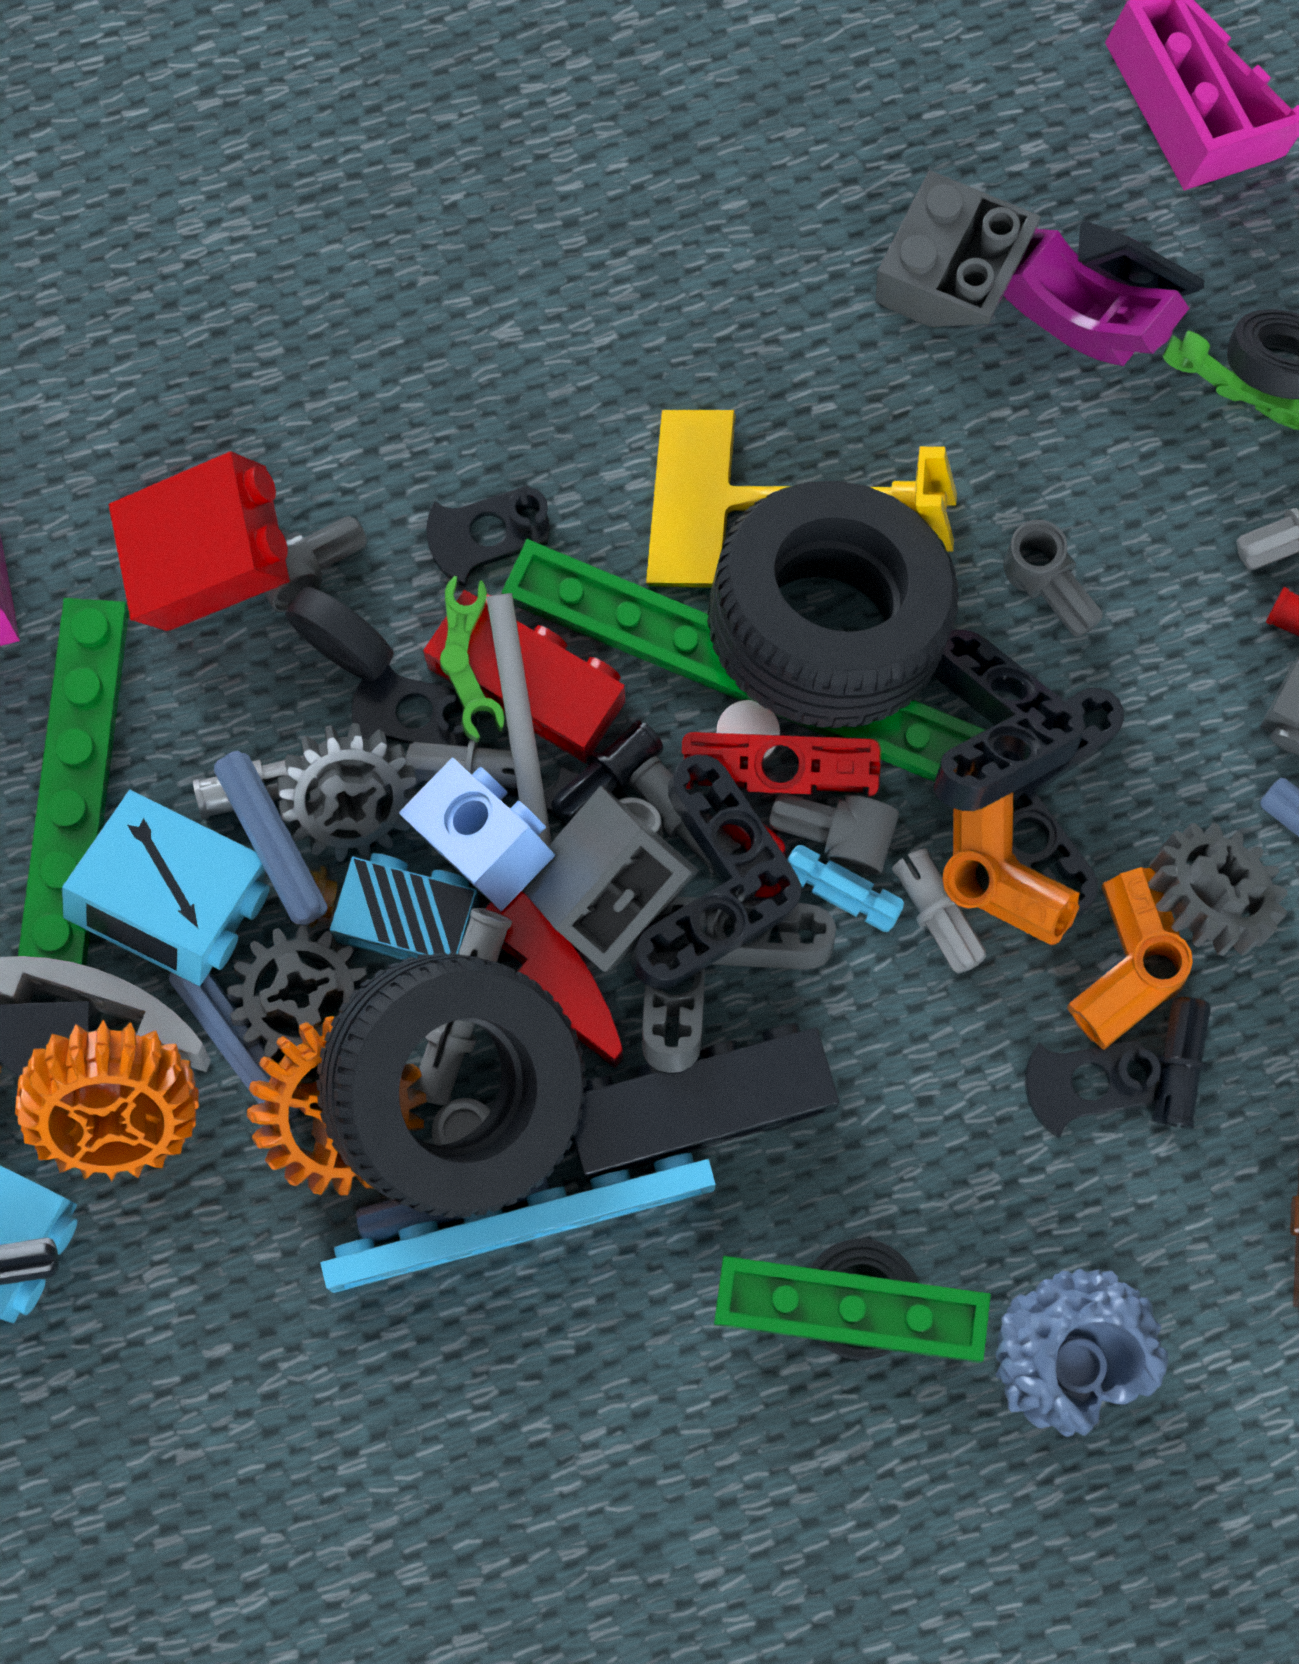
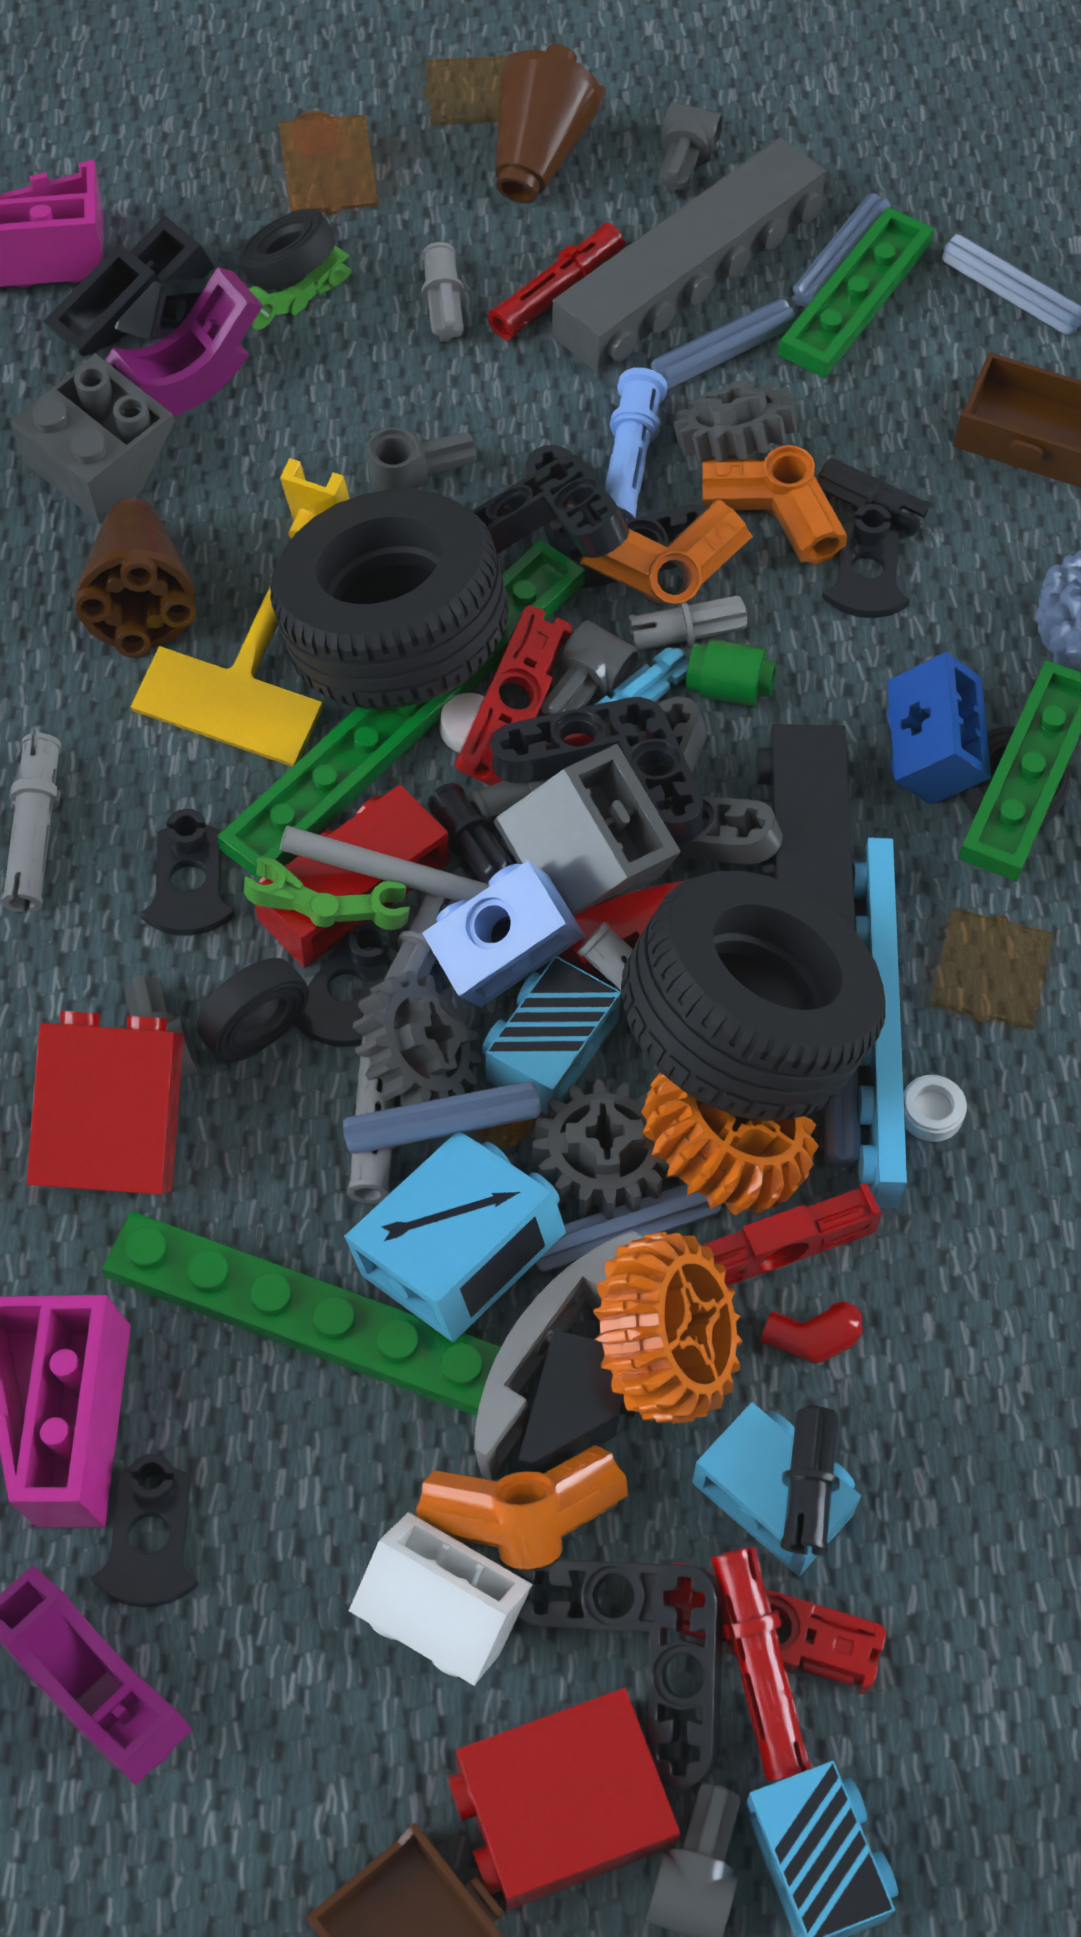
camera: 75 degrees left, 15 degrees down
(168, 1246) = (817, 1338): none -> red arm
(255, 1189) = (796, 1234): none -> red piece
(446, 1301) = (933, 1108): none -> white tile
(498, 369) = (34, 801): none -> light grey pin
(626, 1326) = (991, 969): none -> clear orange piece
(798, 354) = (134, 582): none -> reddish brown cone
(878, 1202) = (938, 729): none -> blue brick
(890, 972) = (730, 672): none -> green brick
(1176, 220) = (91, 310): none -> black slope
(1181, 785) = (634, 428): none -> light blue pin

